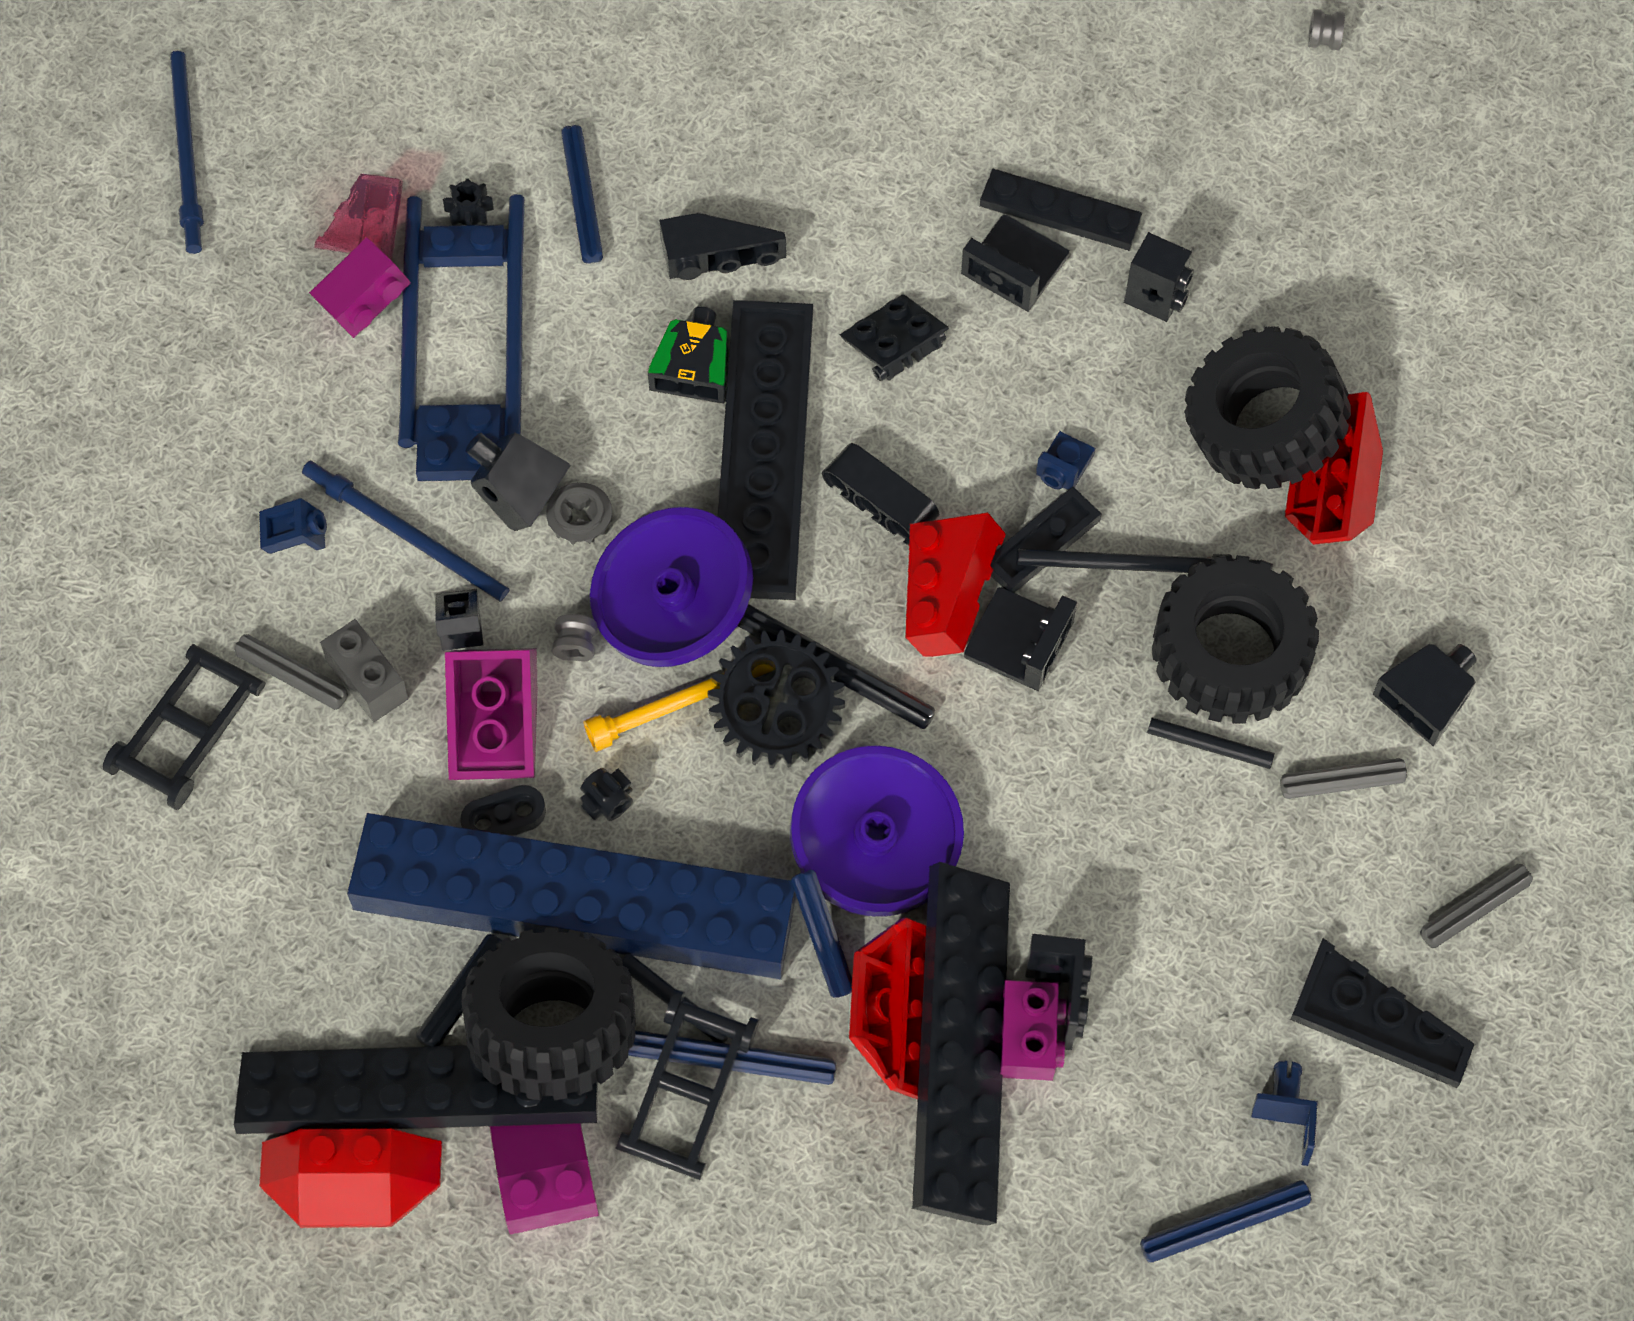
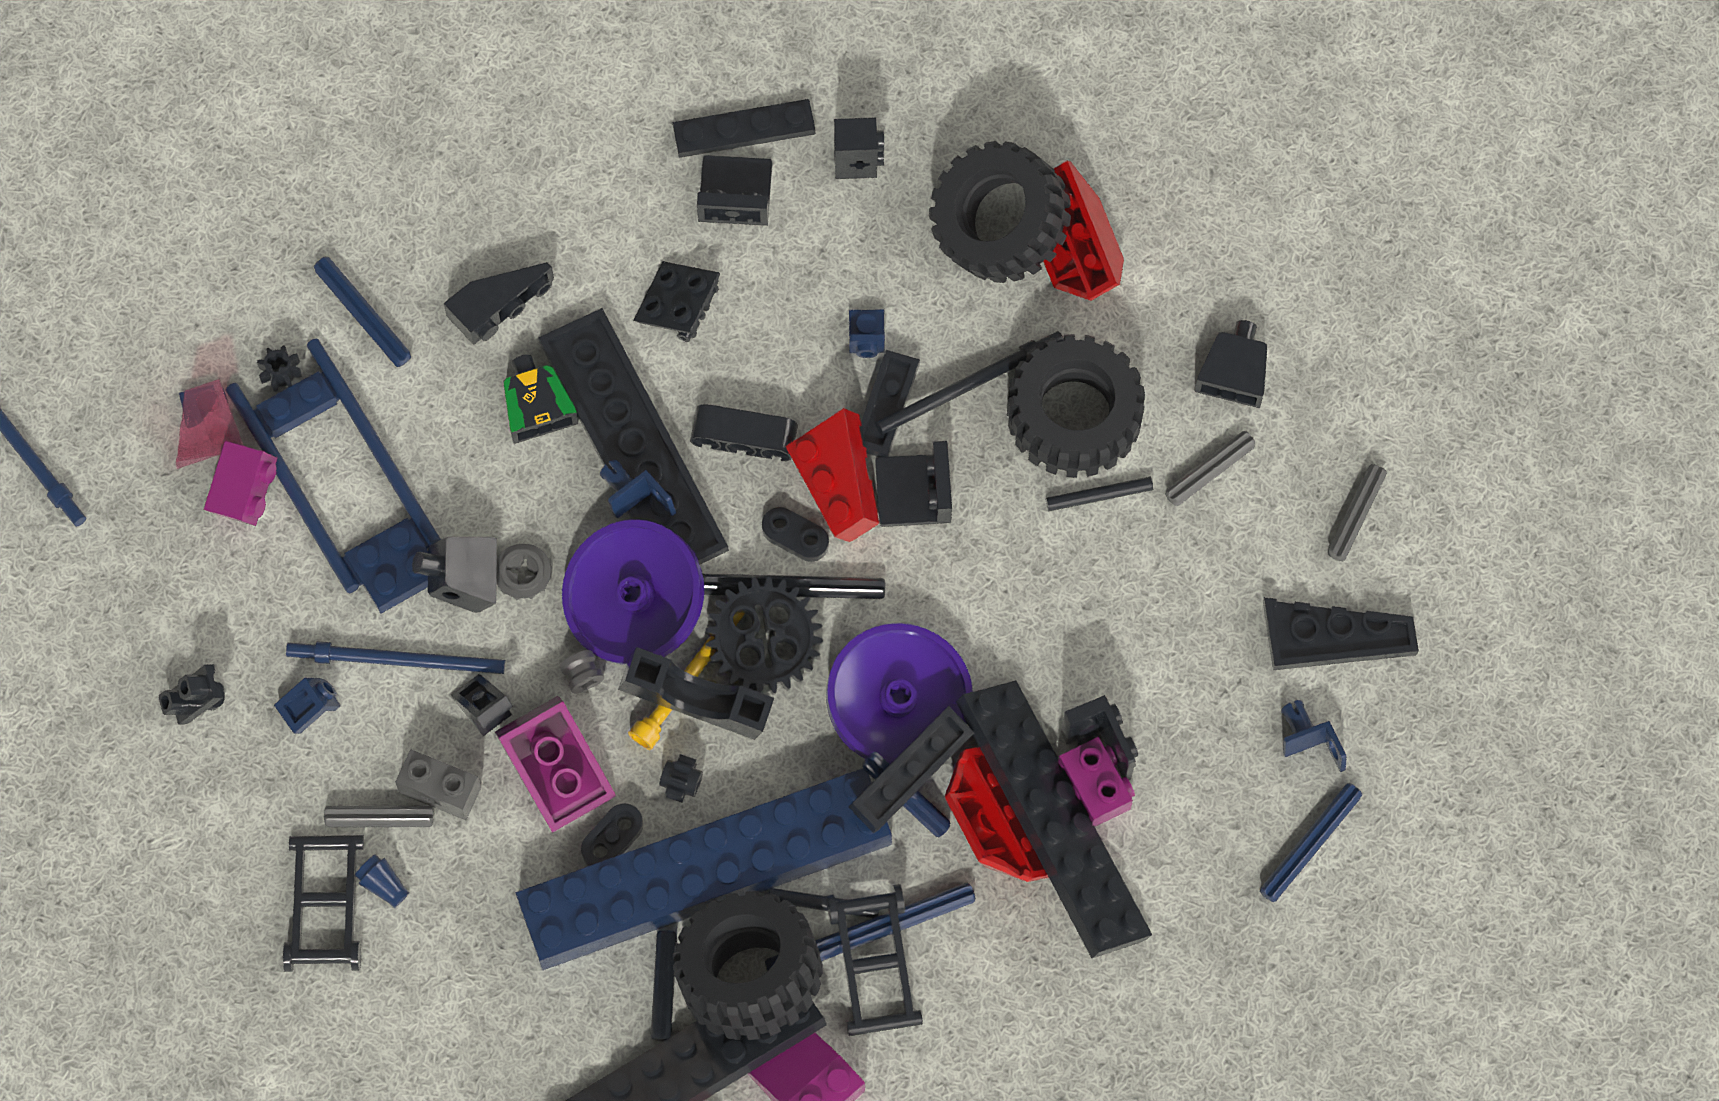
camera: 30 degrees left, 5 degrees up
(187, 460) = (193, 695): none -> black hips
(252, 733) = (382, 881): none -> dark blue cone
(646, 693) = (721, 705): none -> black arch
(728, 486) = (632, 491): none -> dark blue bracket
(838, 907) = (911, 769): none -> black plate
(870, 617) = (794, 533): none -> black plate

